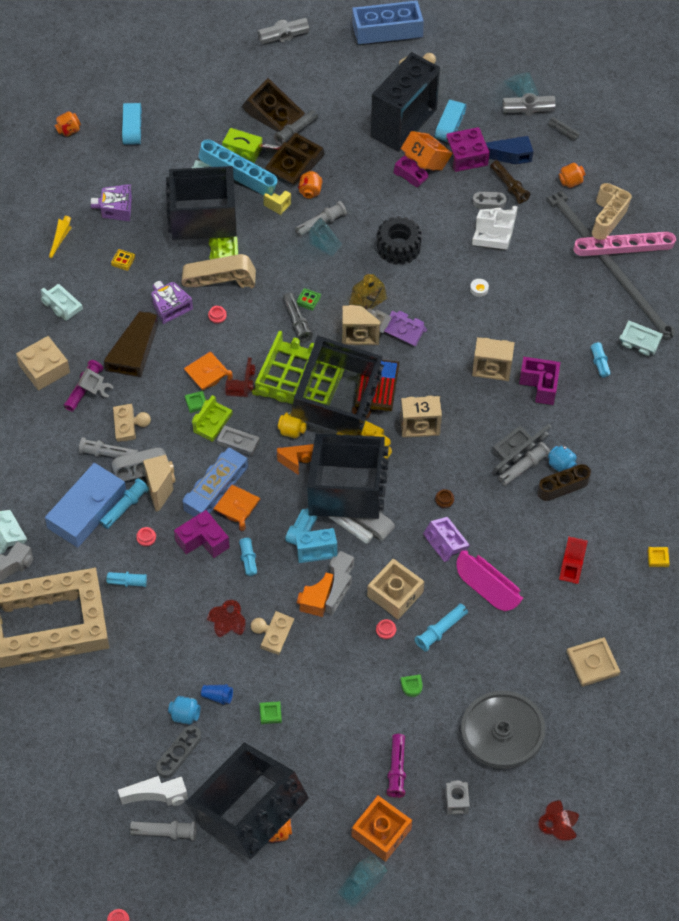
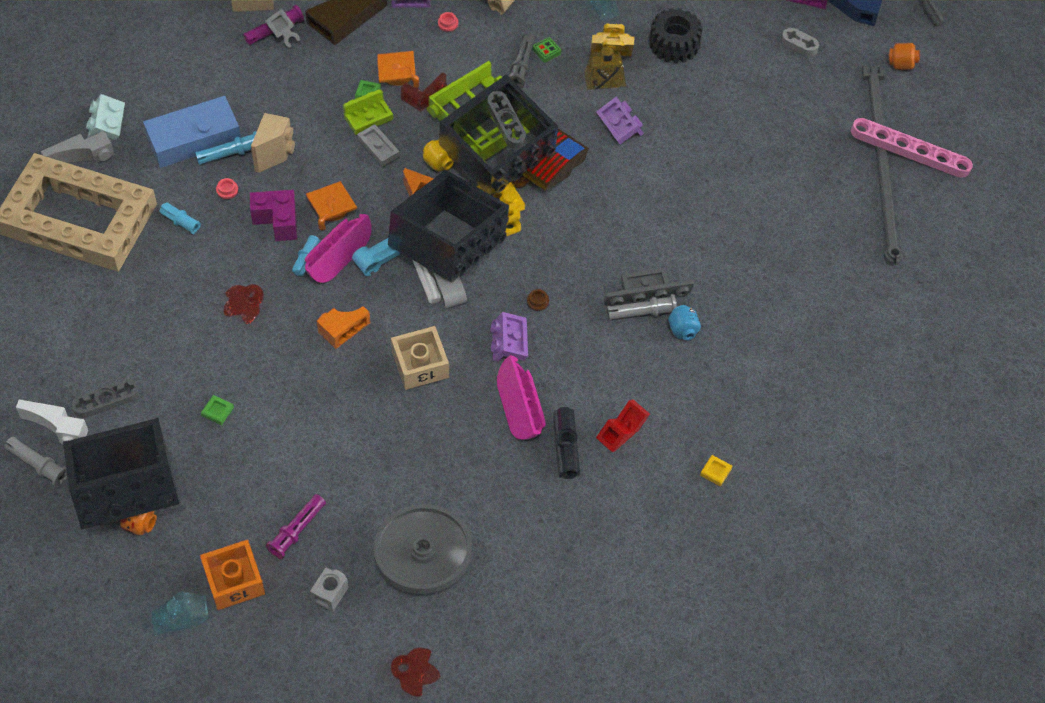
camera: 30 degrees right, 0 degrees up
(98, 449) = (245, 89): light grey pin -> none
(126, 422) = (289, 76): tan plate -> none
(130, 463) = (257, 111): light grey beam -> none
(184, 710) = (137, 362): dark azure head -> none
(215, 483) = (315, 174): medium blue brick -> none
(218, 693) = (182, 366): blue cone -> none
(269, 537) = (338, 248): none -> dark pink brick
(275, 633) = (278, 338): tan plate -> none
(316, 545) = (375, 277): medium azure bracket -> none
(329, 368) = (506, 110): none -> dark grey beam
(340, 567) = (384, 311): light grey slope -> none
(359, 326) = (569, 94): tan slope -> none
(361, 266) = (614, 37): none -> yellow plate
(382, 317) = (596, 100): light grey plate -> none
(386, 629) = (385, 392): coral plate -> none
(411, 685) = (371, 459): bright green tile -> none
(420, 416) = (567, 208): tan brick -> none
(435, 632) = (430, 420): medium azure pin -> none
(479, 287) = (726, 119): white tile -> none
(493, 359) = (683, 190): tan brick -> none
(496, 227) = (788, 70): white slope -> none
(514, 186) = (835, 39): dark brown pin -> none
(536, 586) = (567, 453): none -> black piece
(542, 375) = (723, 232): magenta brick -> none
(570, 476) = (680, 343): dark brown beam -> none
(593, 662) = (568, 535): tan plate -> none
(600, 359) = (800, 247): medium azure axle -> none
(615, 207) = (926, 106): tan beam -> none
(641, 338) = (859, 247): light aqua bracket -> none

